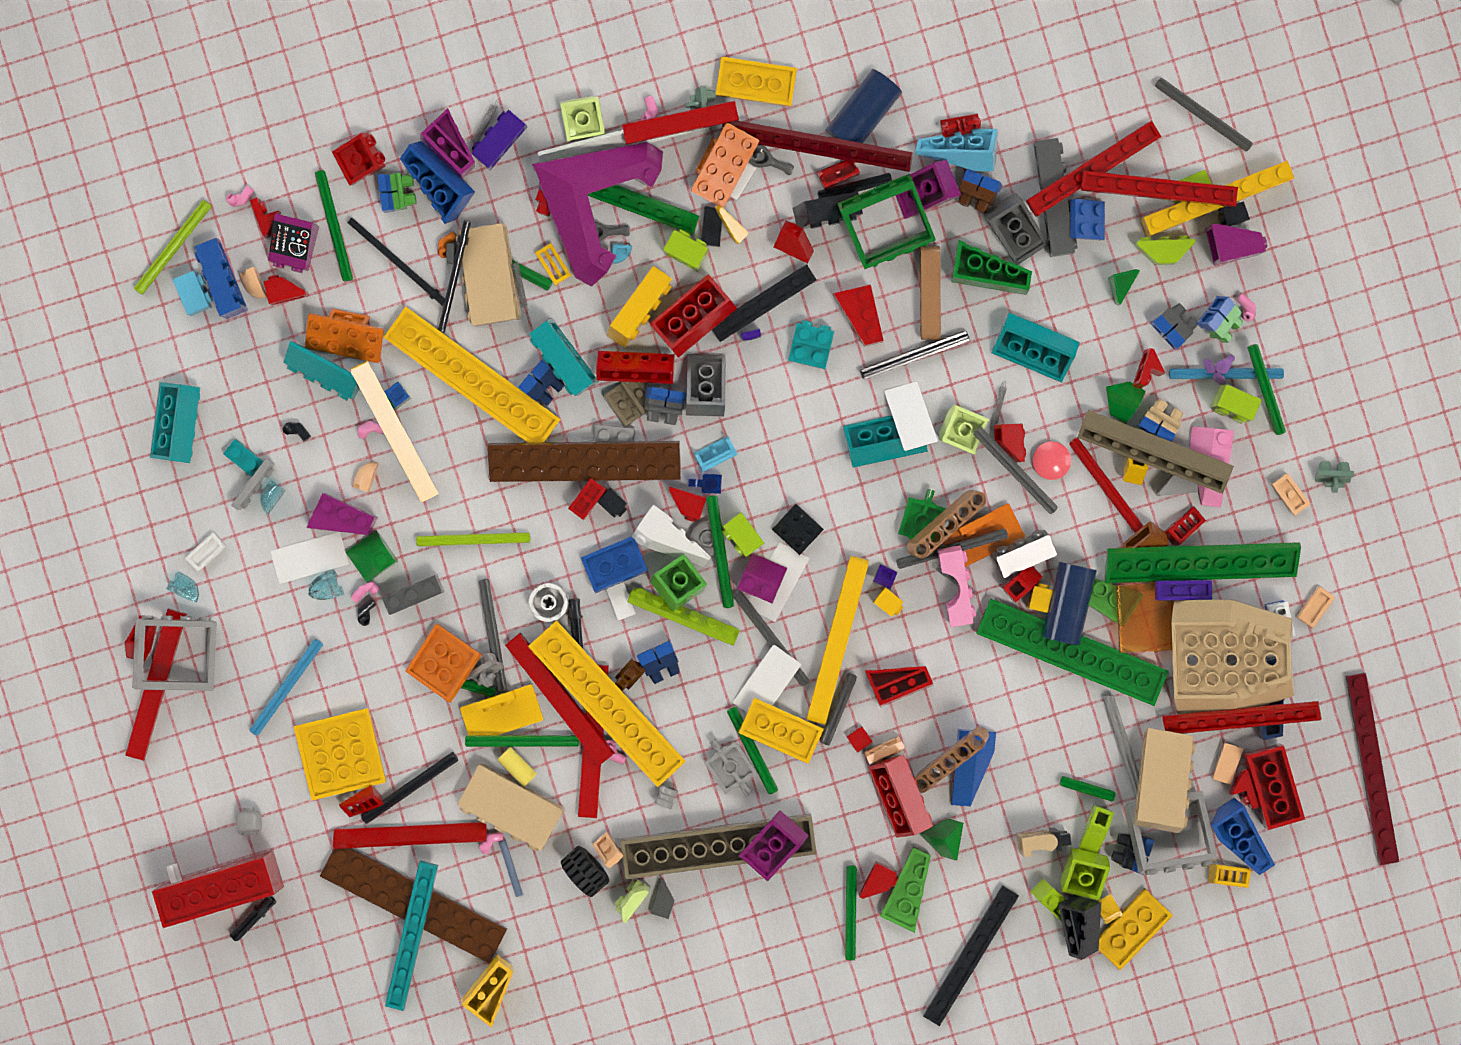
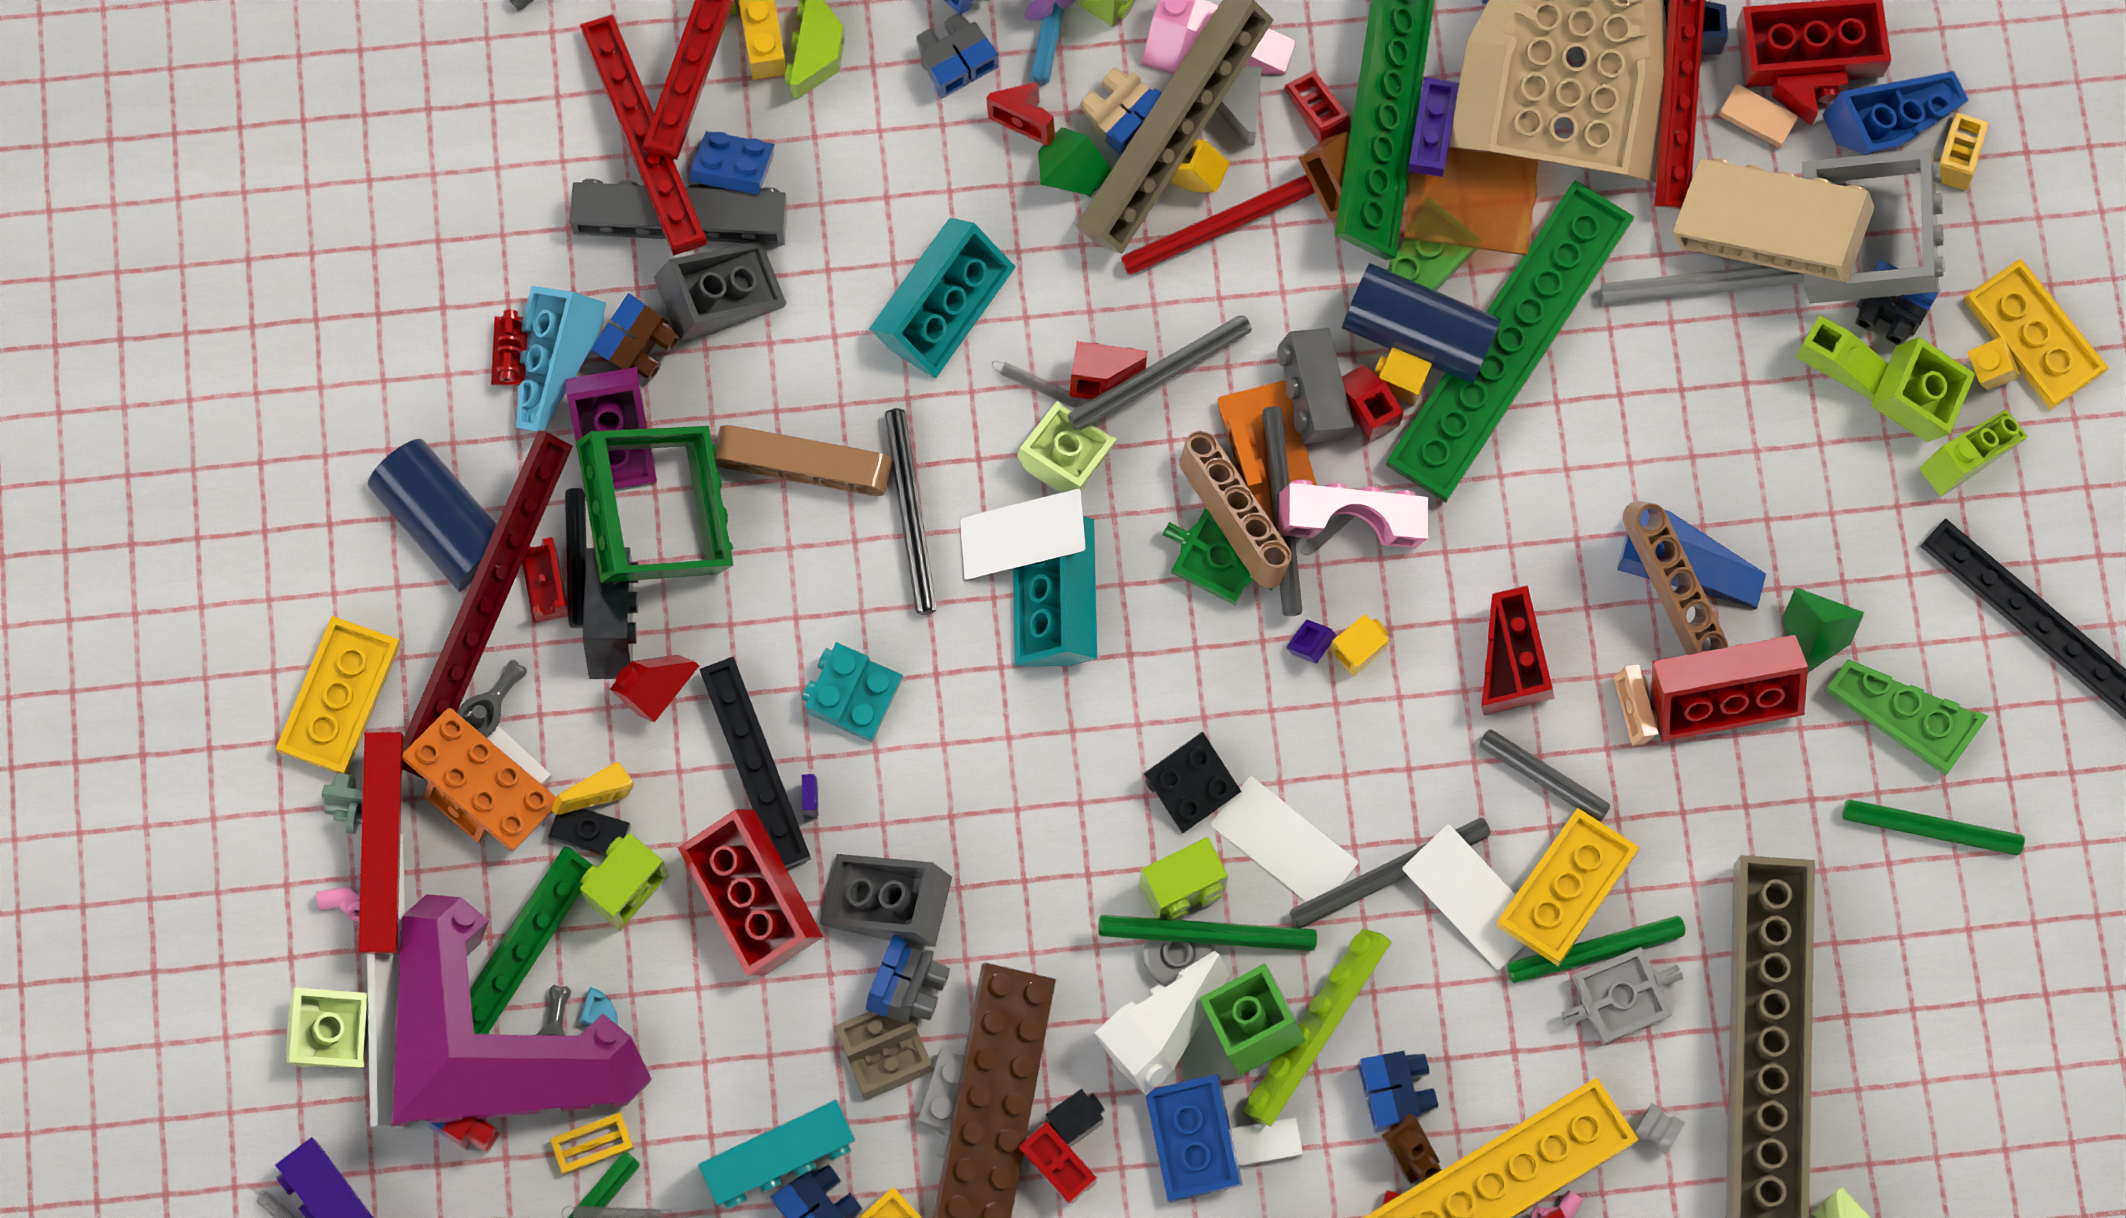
camera: 75 degrees left, 15 degrees down
(635, 367) = (824, 1022): red brick -> none
(639, 306) = (713, 992): yellow wedge -> none
(663, 901) = (1861, 1176): dark grey tile -> none
(688, 503) = (1104, 975): red slope -> none
(710, 483) = (1074, 930): clear blue plate -> none
(715, 453) = (1020, 906): medium azure hinge -> none
(762, 578) = (1274, 866): magenta slope -> none
(773, 845) = (1787, 932): magenta slope -> none
(837, 639) = (1414, 750): yellow beam -> none
(859, 739) = (1607, 748): red tile -> none
(861, 312) = (813, 587): red wedge -> none
(879, 880) = (1881, 764): red slope -> none
(988, 271) = (782, 357): green wedge -> none
(1042, 839) = (1848, 468): tan hips -> none
(1051, 460) = (1154, 310): coral dish -> none
(1081, 925) = (2017, 411): black wedge -> none
(1087, 788) = (1765, 362): green axle -> none
(1121, 283) = (862, 129): green slope -> none

